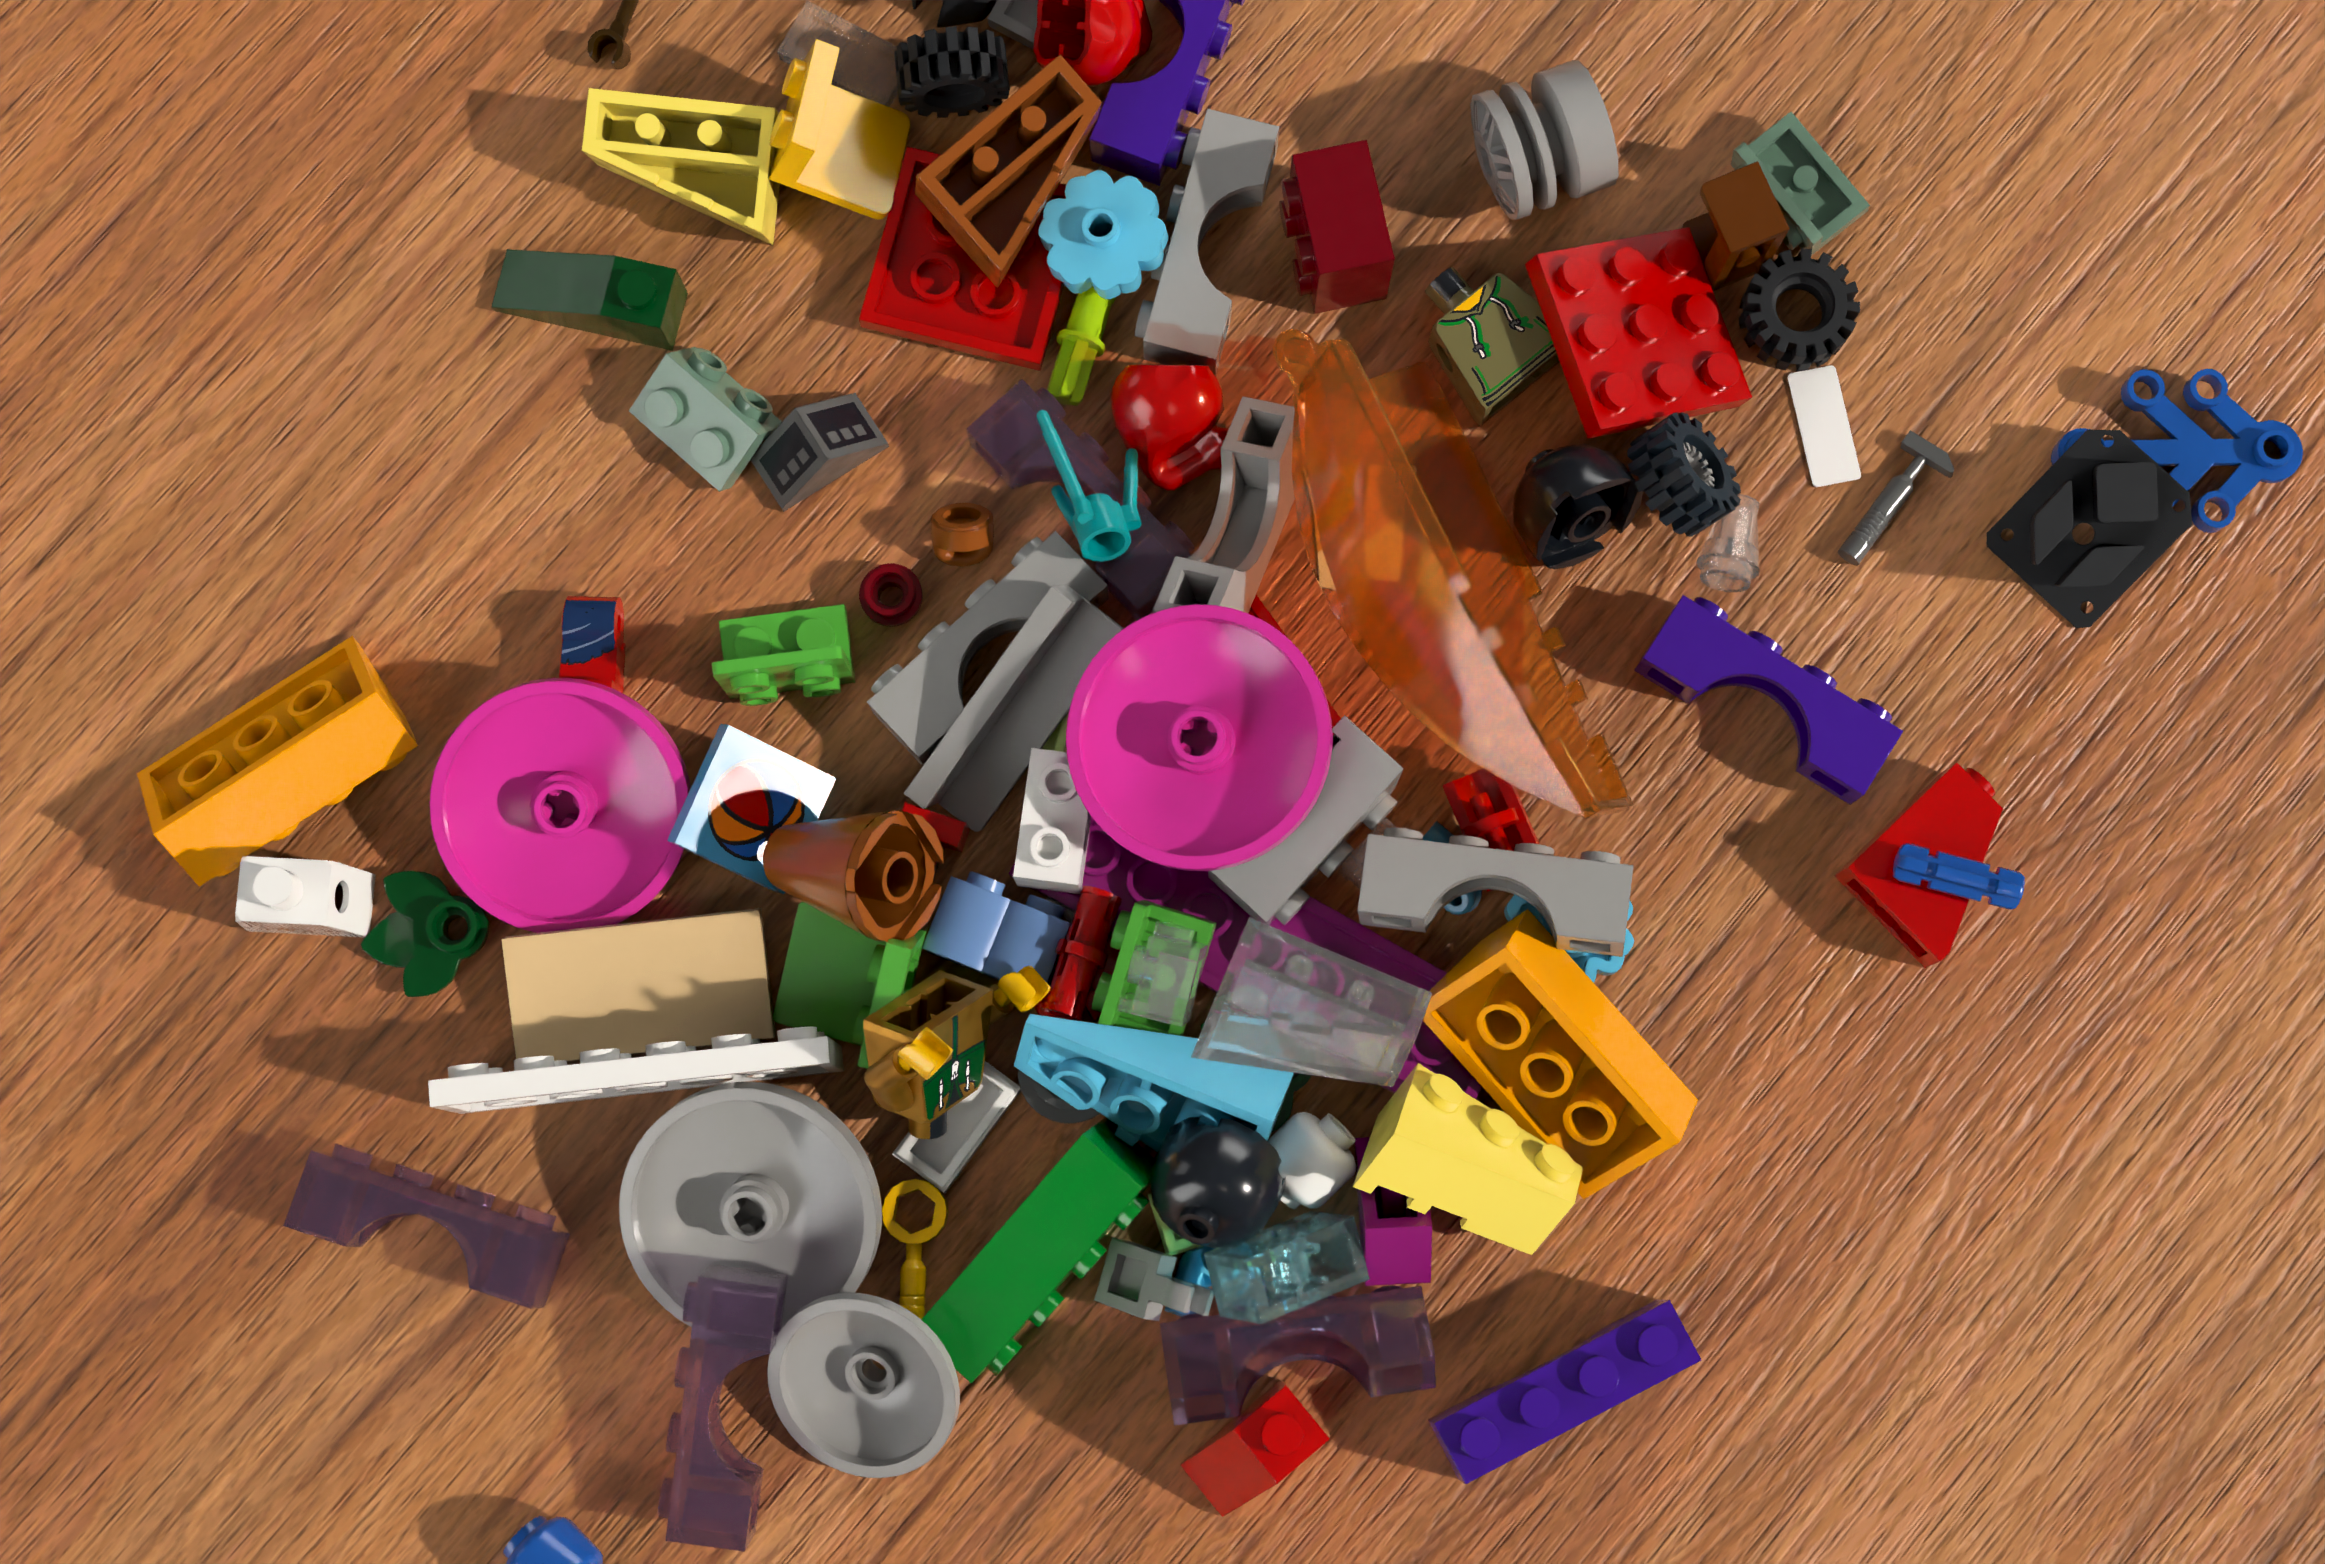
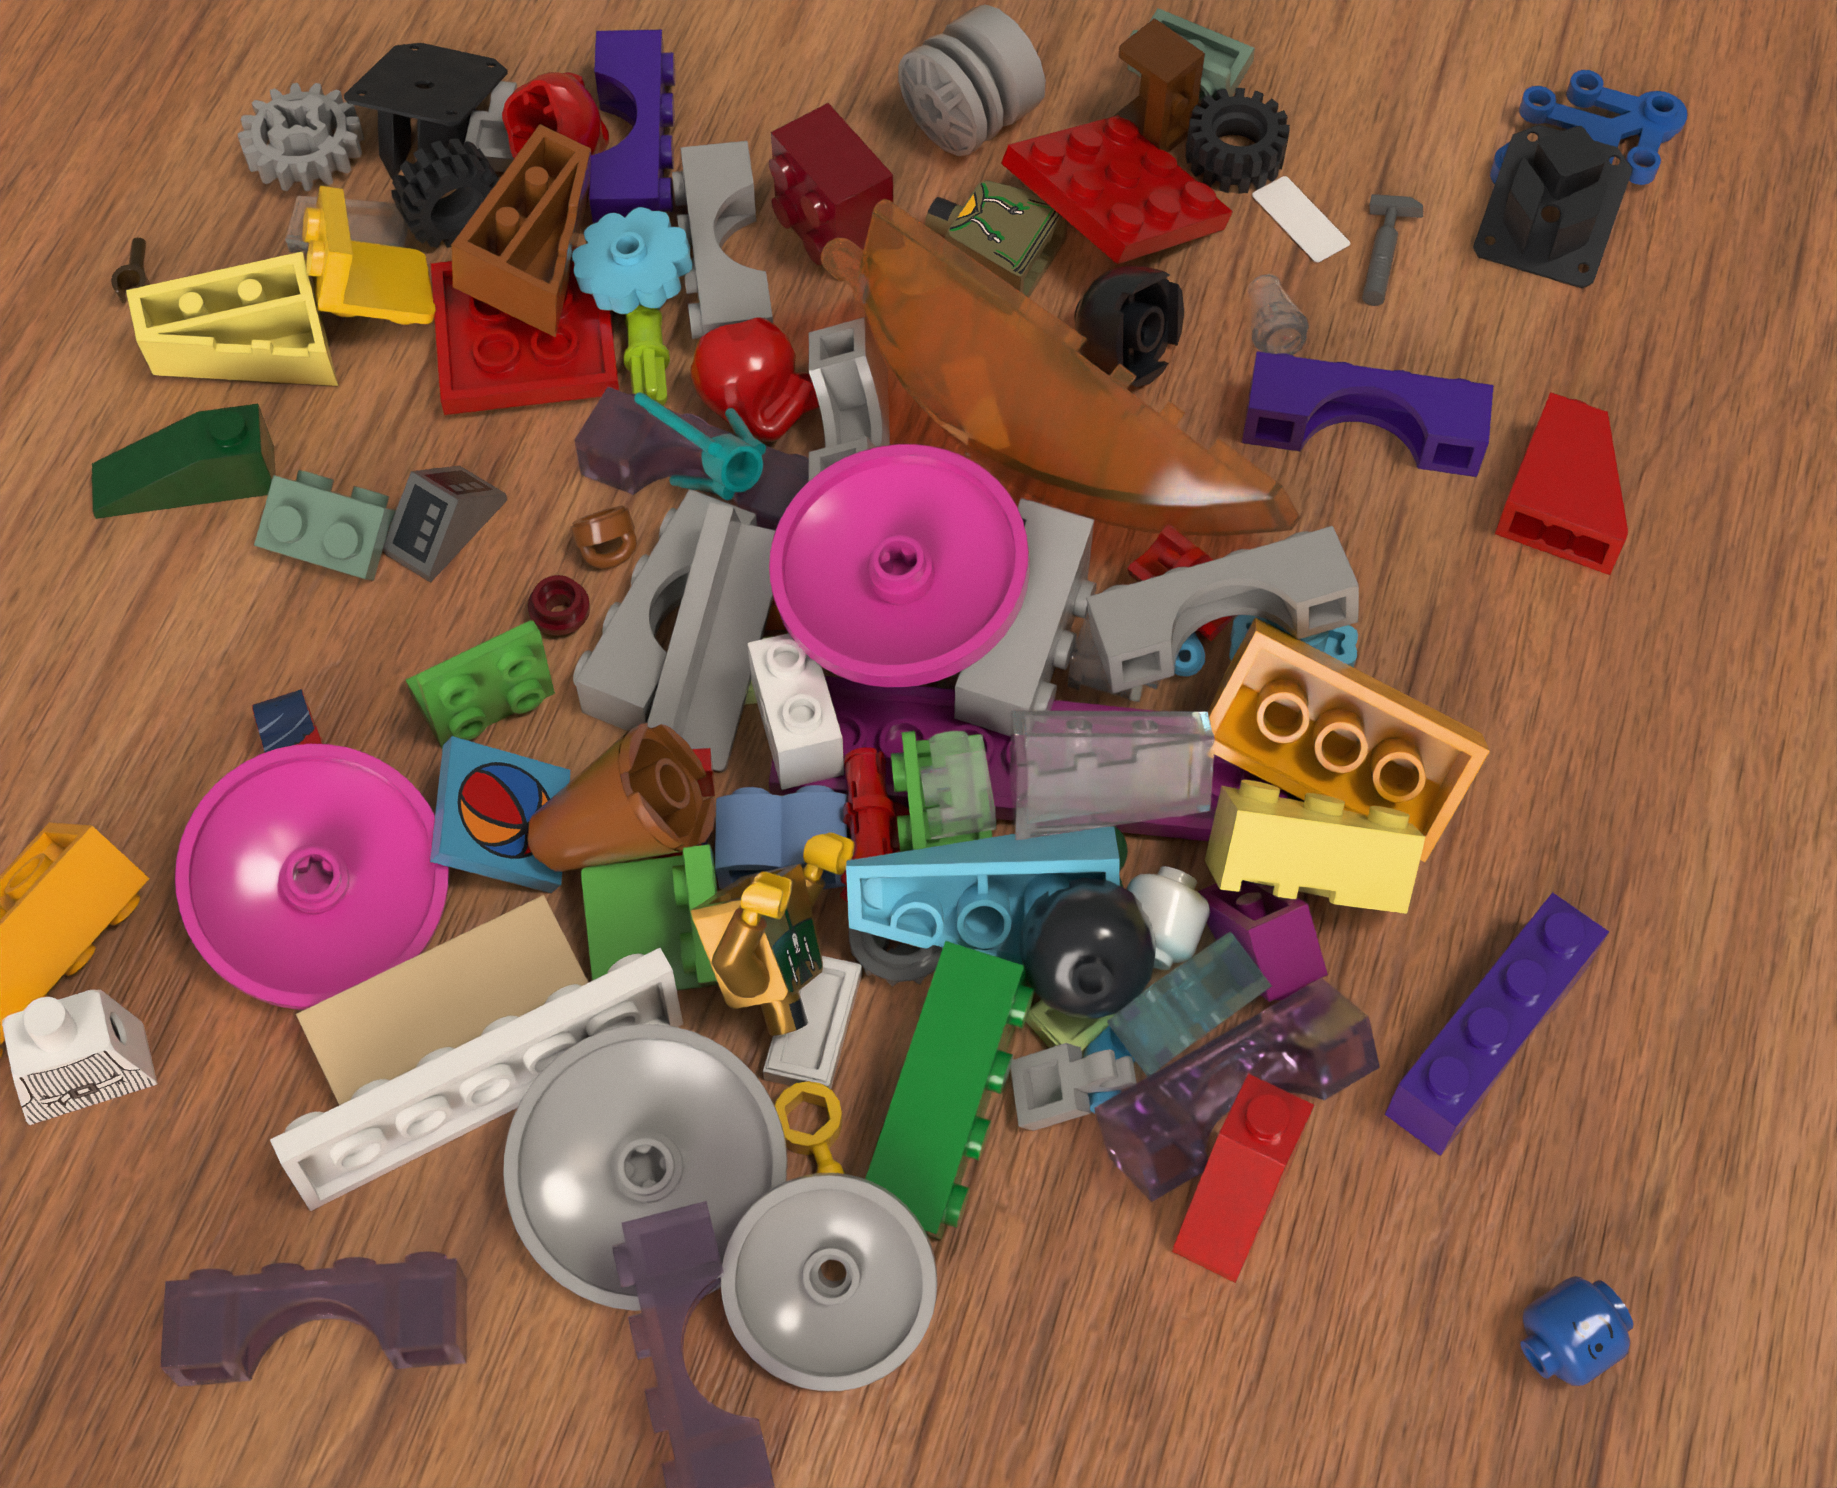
camera: 25 degrees left, 20 degrees down
(418, 932) = (207, 1051): dark green plate -> none
(1683, 474) = (1209, 269): black bush -> none
(1958, 876) = (1603, 466): blue axle -> none

